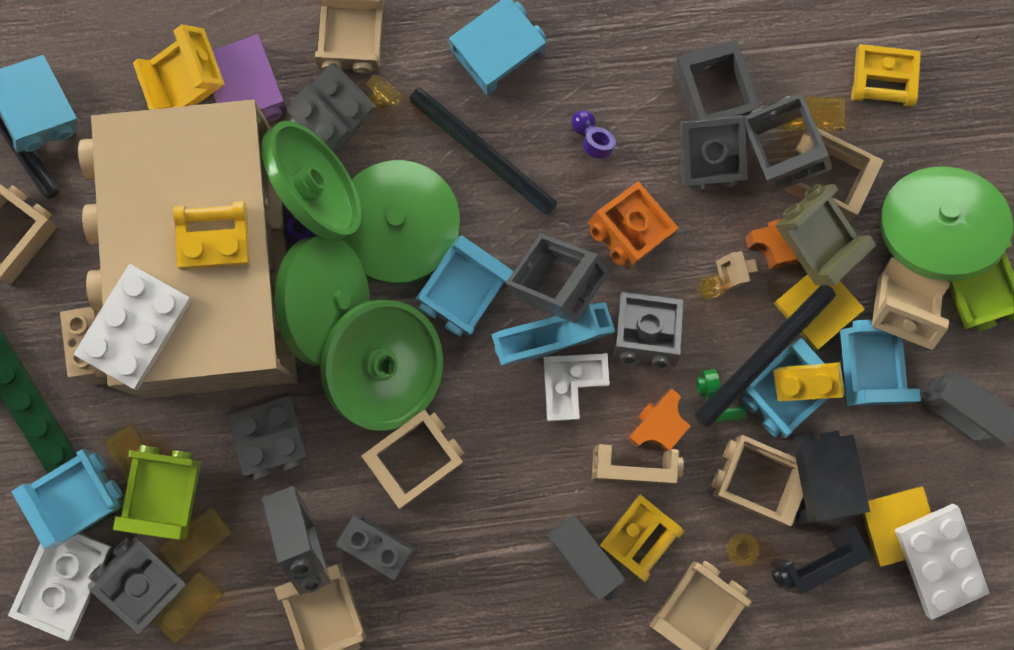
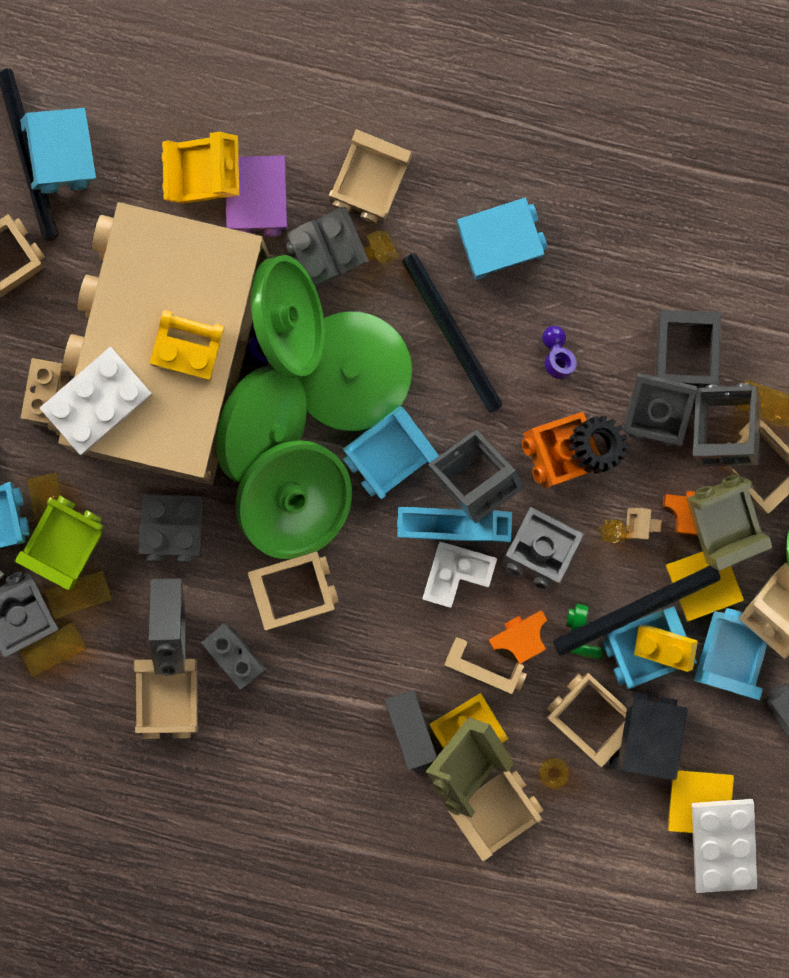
camera: 30 degrees right, 5 degrees up
(655, 571) = (466, 764): none -> olive panel
(676, 196) = (612, 438): none -> black tyre
(849, 553) = (642, 810): black panel -> none

